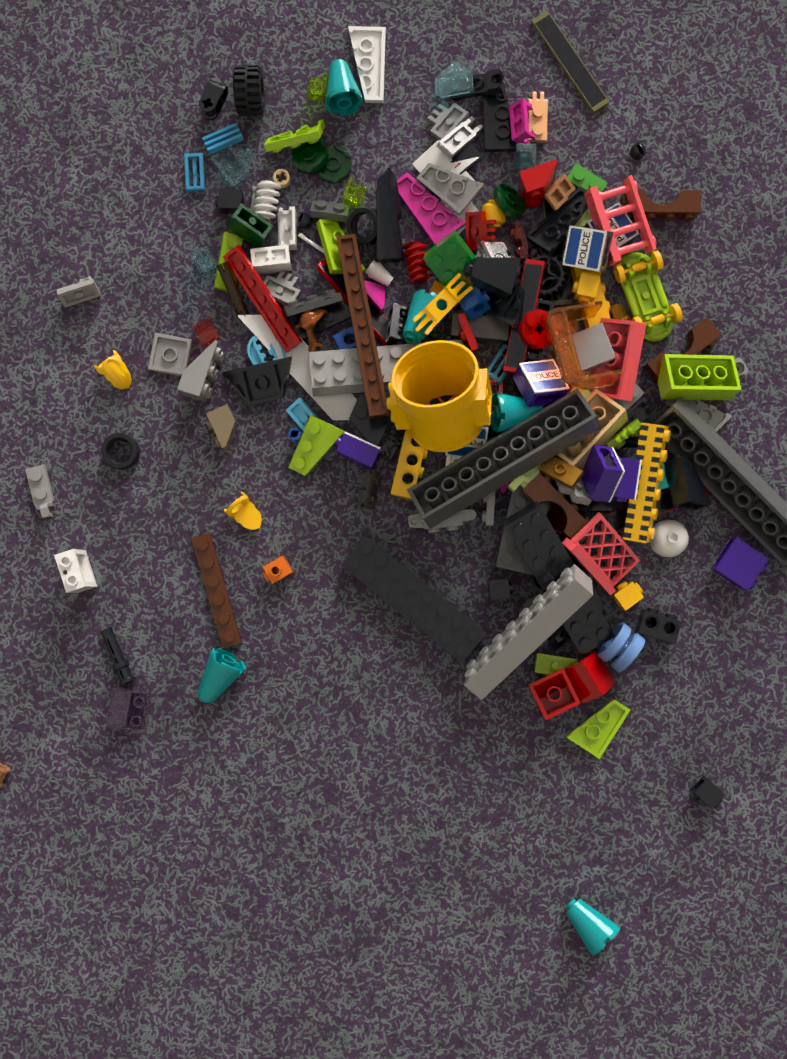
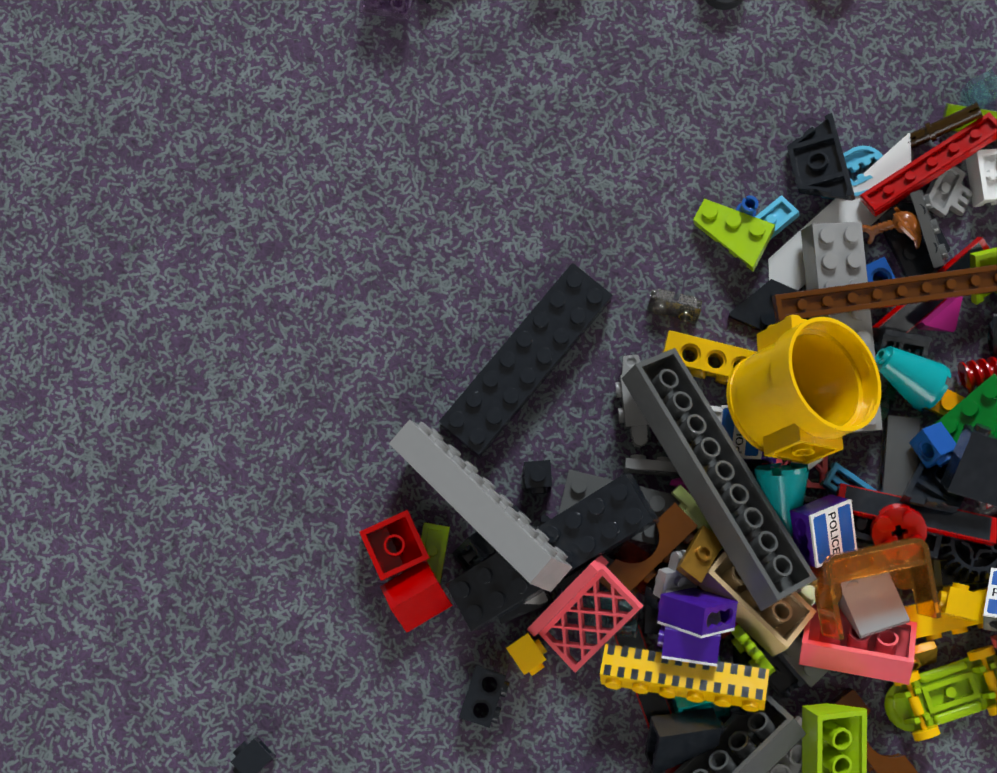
camera: 95 degrees right, 5 degrees down
(170, 354) = (854, 48): light grey tile -> none
(199, 375) = (831, 84): light grey slope -> none
(206, 332) = (884, 92): clear red slope -> none
(216, 590) = (540, 105): reddish brown plate -> none
(219, 674) = (431, 106): teal cone -> none
(224, 425) = (761, 114): dark tan slope -> none
(244, 512) = (644, 140): yellow piece -> none
(277, 570) = (567, 182): orange brick -> none
(357, 450) = (727, 287): dark purple piece -> none
(378, 273) = (972, 321): white cone -> none
(392, 442) = (736, 335): black hinge -> none
(449, 296) = (922, 382): yellow piece -> none
(466, 333) = (890, 433): red plate -> none
(591, 925) = (82, 589): teal cone -> none
(600, 728) = (344, 611): lime wing -> none
(621, 648) = (455, 640): medium blue wheel -> none
(669, 538) = (605, 715): white cylinder -> none

